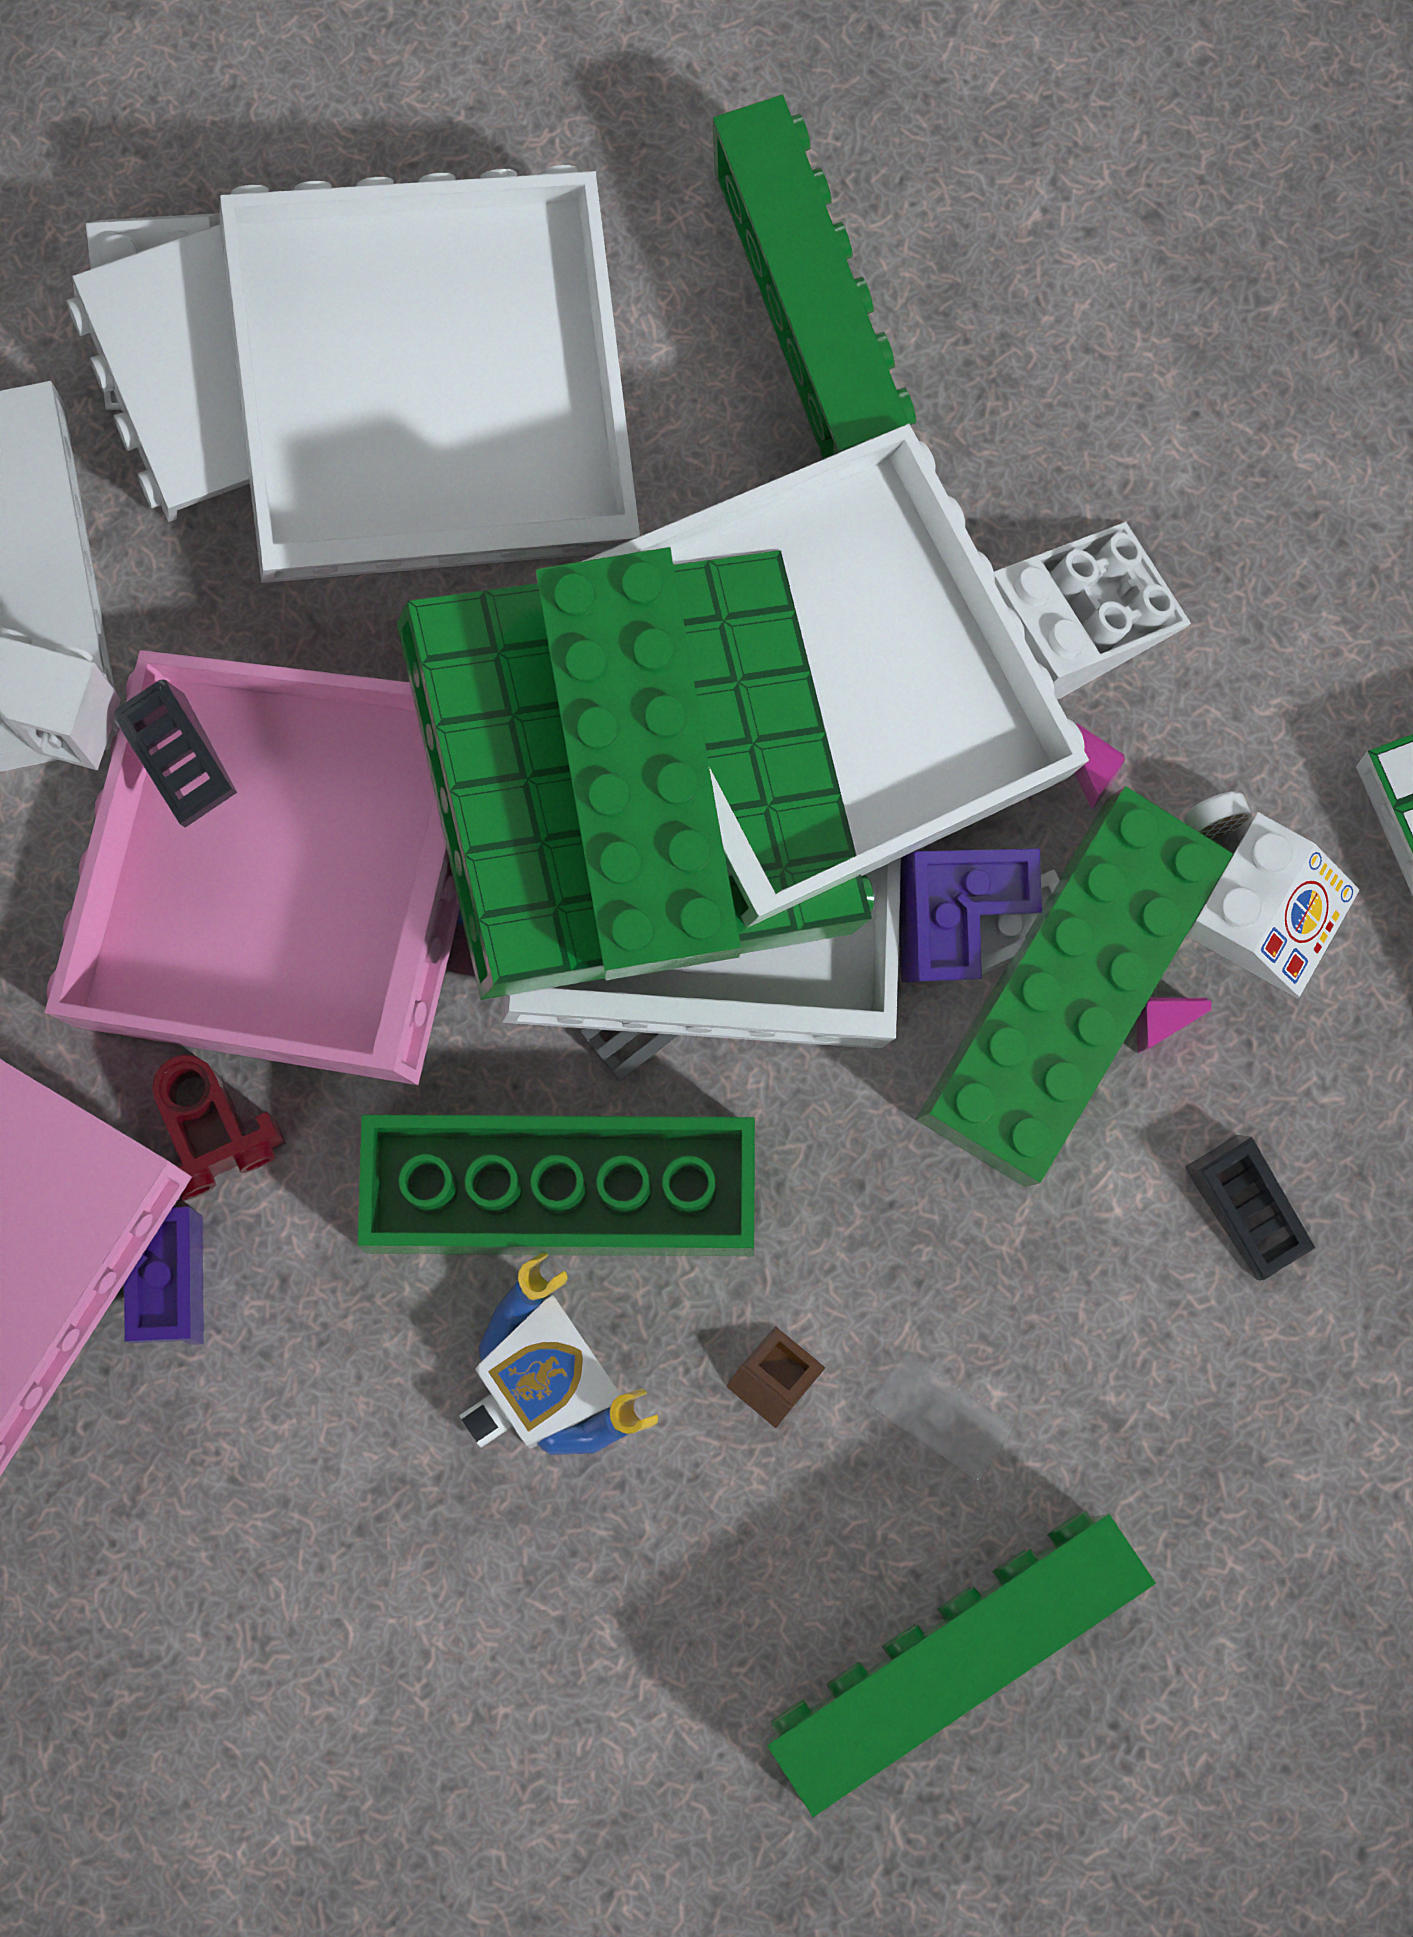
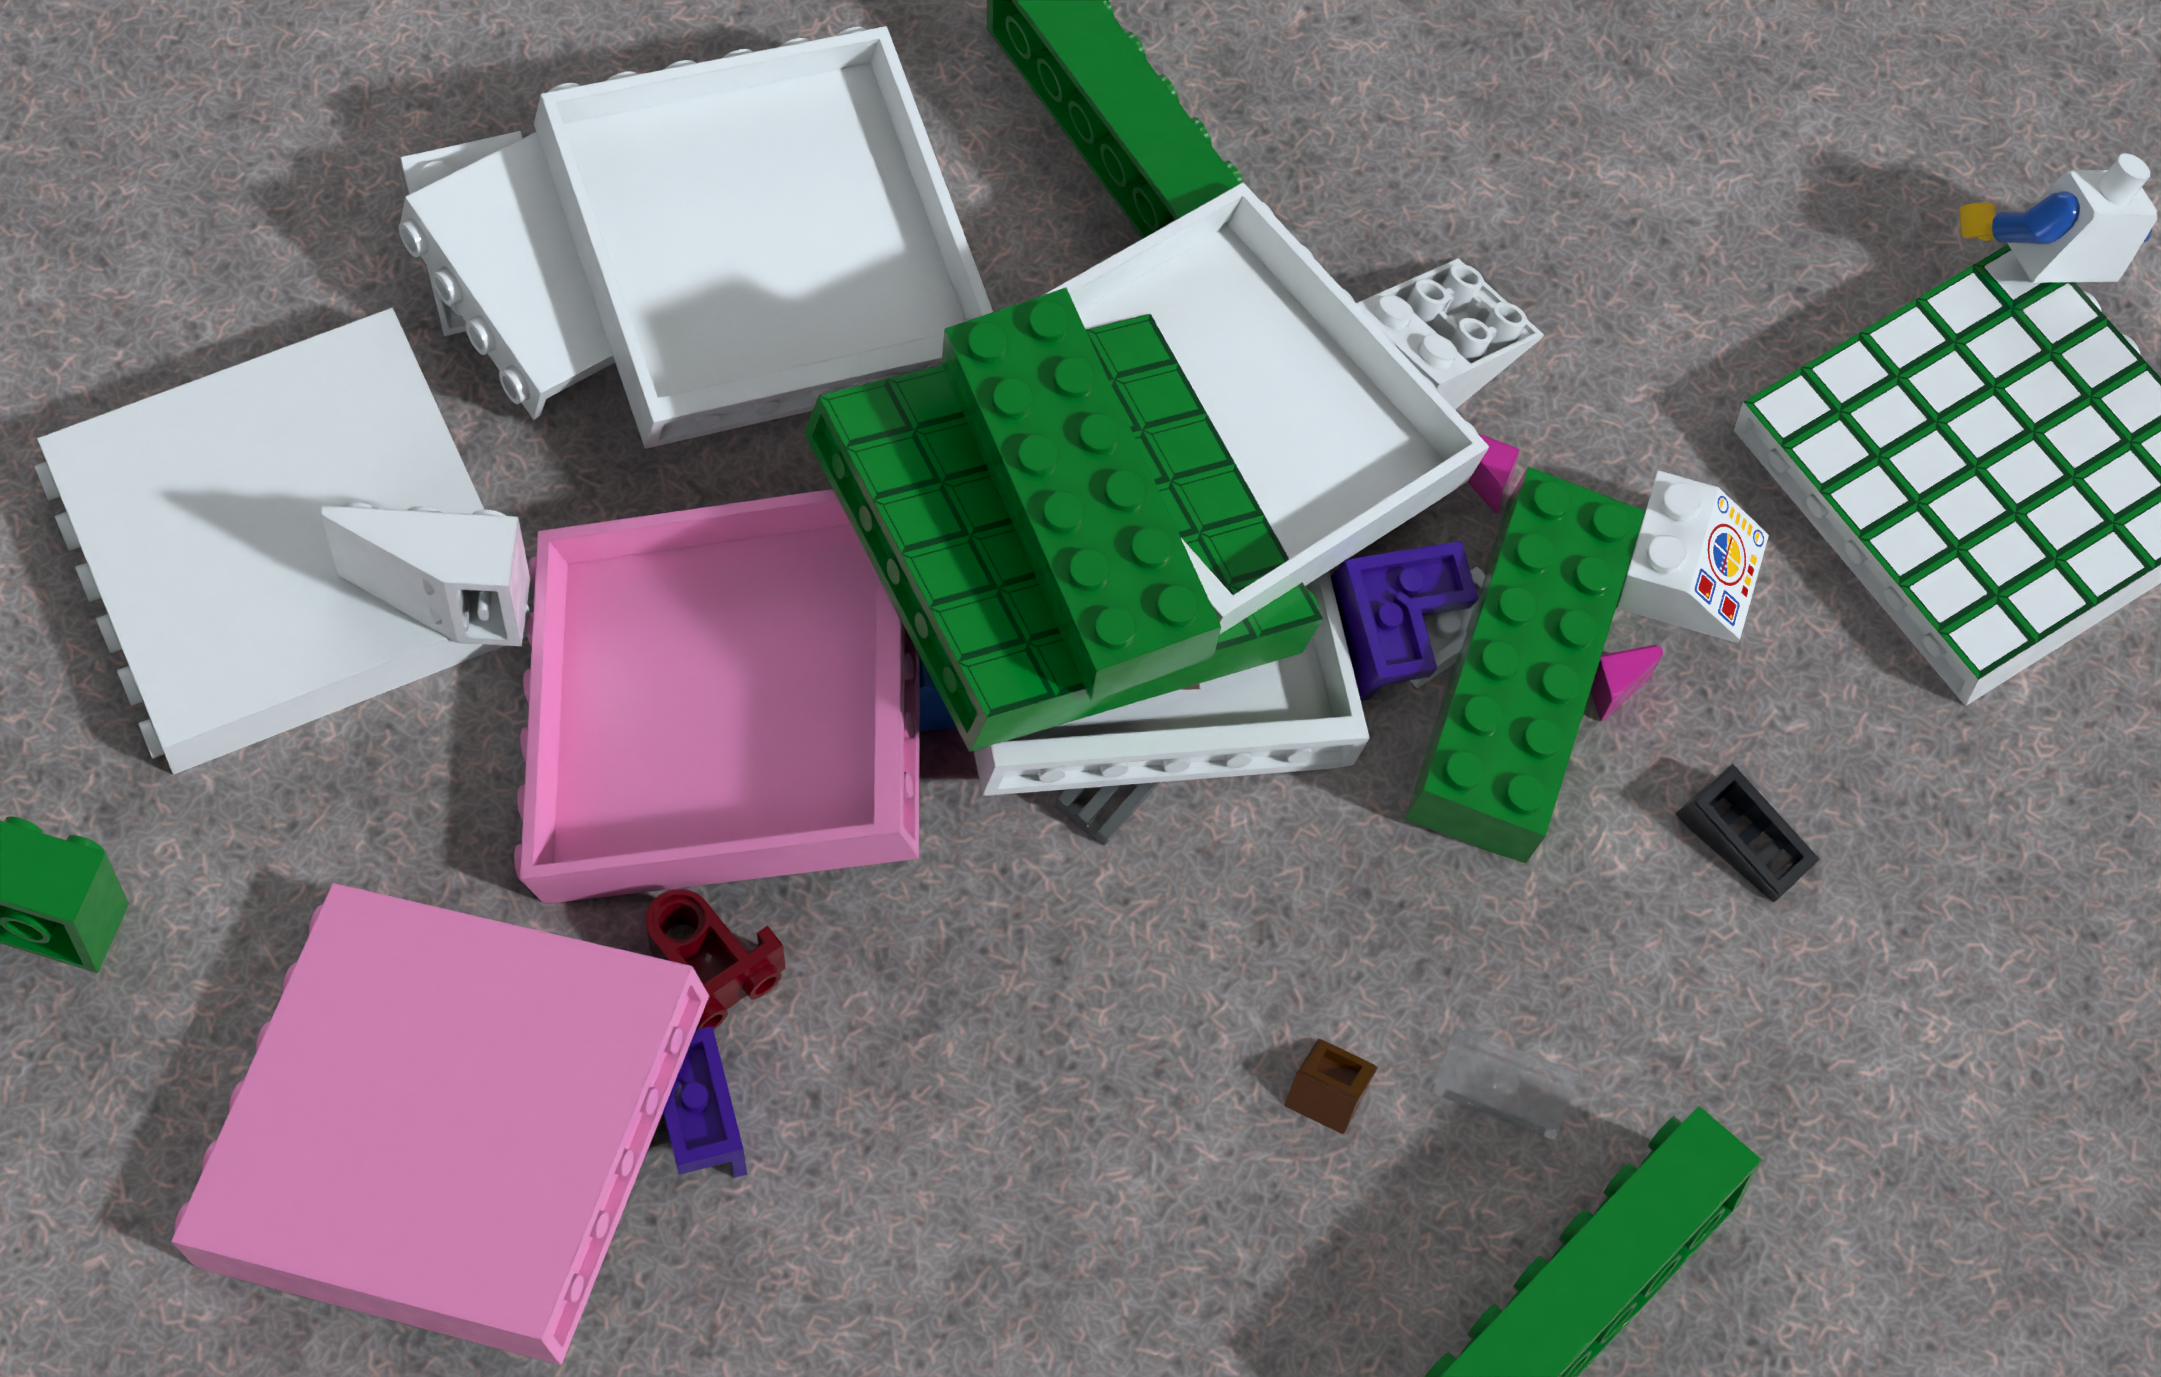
camera: 20 degrees left, 15 degrees down
(152, 719) = (572, 579): black slope -> none
(546, 1377) = (1108, 1122): torso -> none
(557, 1185) = (1075, 940): green brick -> none
(1219, 814) = (1624, 484): white tile -> none

